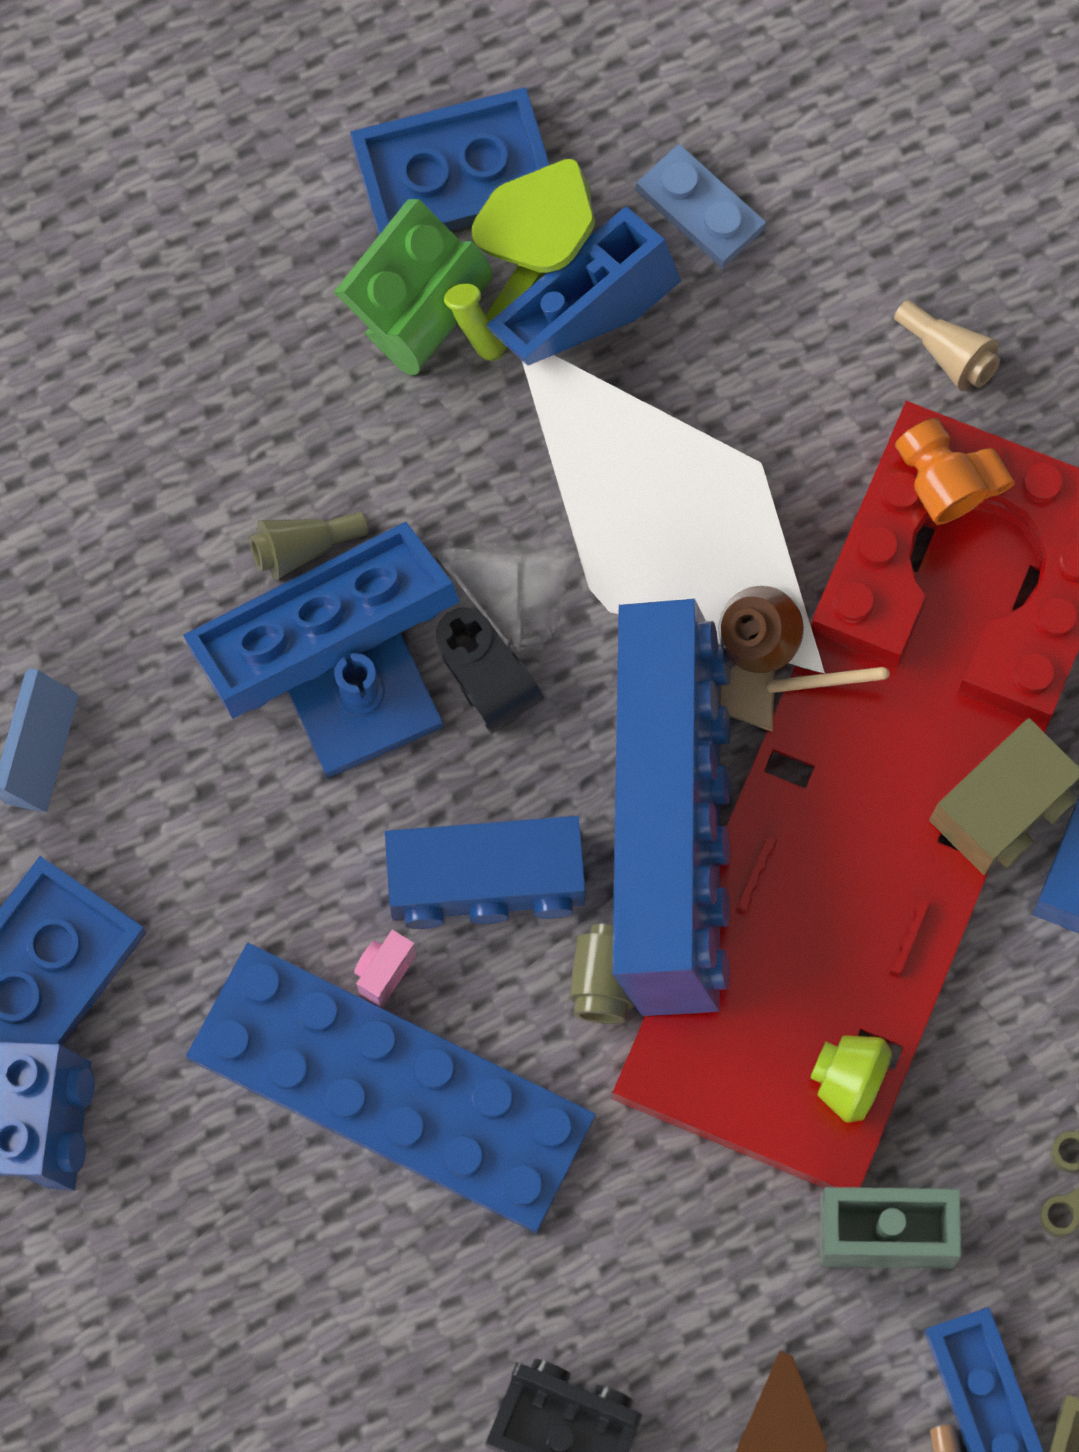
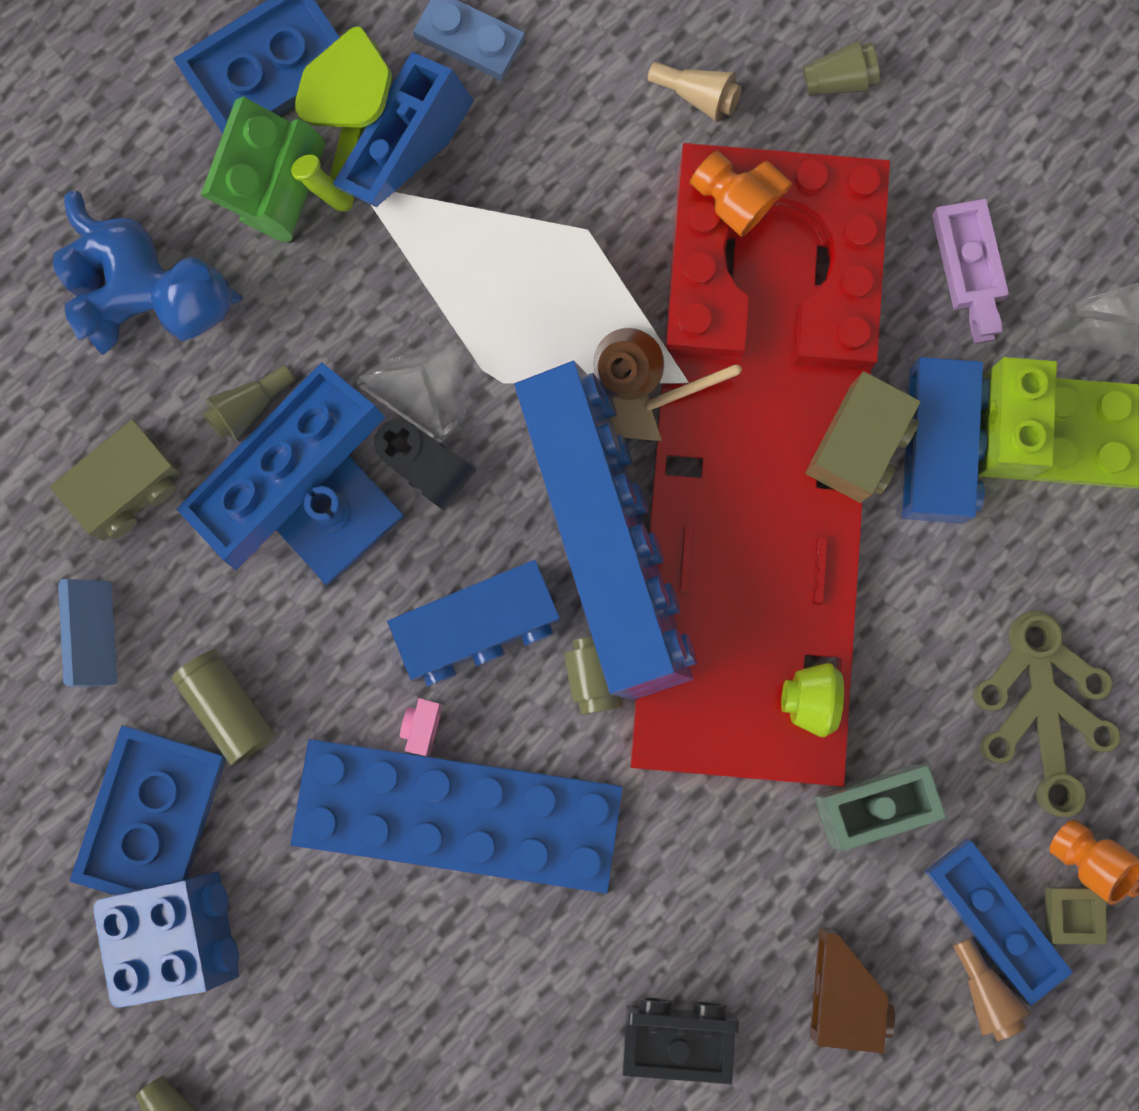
camera: 20 degrees left, 10 degrees up
(129, 583) = (117, 482): none -> olive brick
(162, 873) = (223, 706): none -> olive pin
(274, 401) = (185, 298): none -> blue animal

